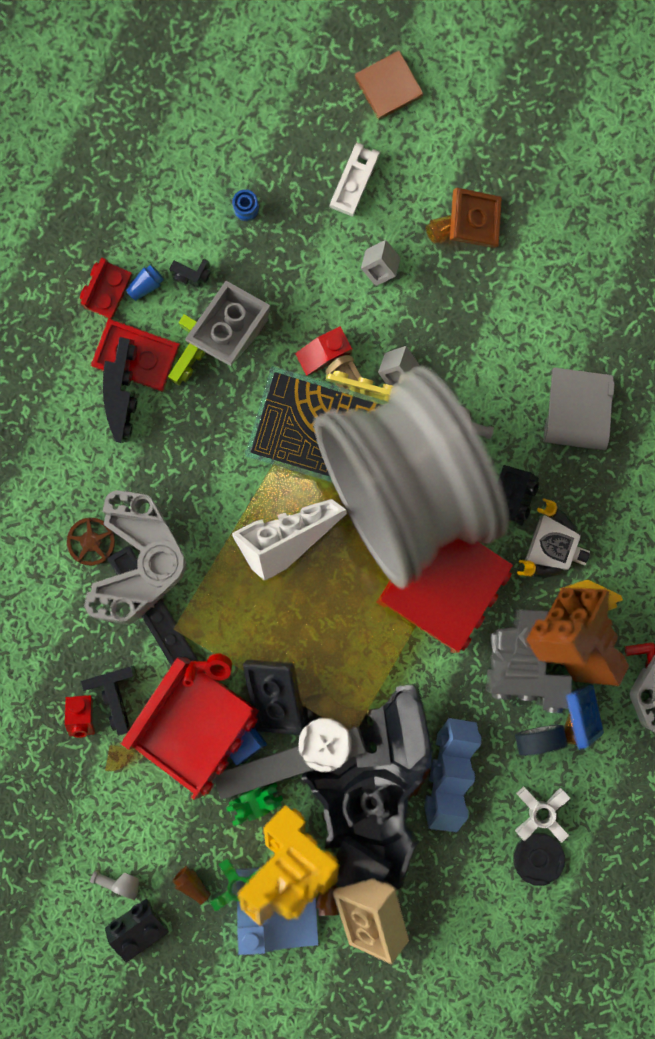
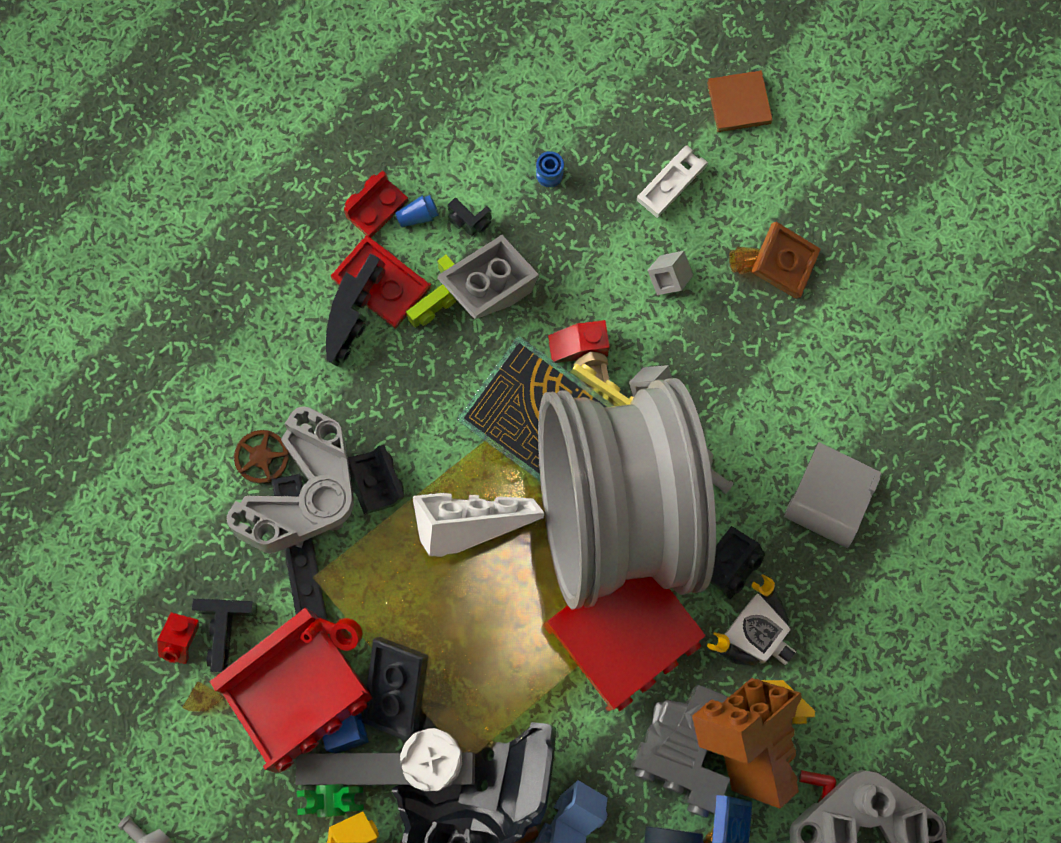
camera: 15 degrees right, 10 degrees down
(194, 529) = (375, 480): none -> black bracket

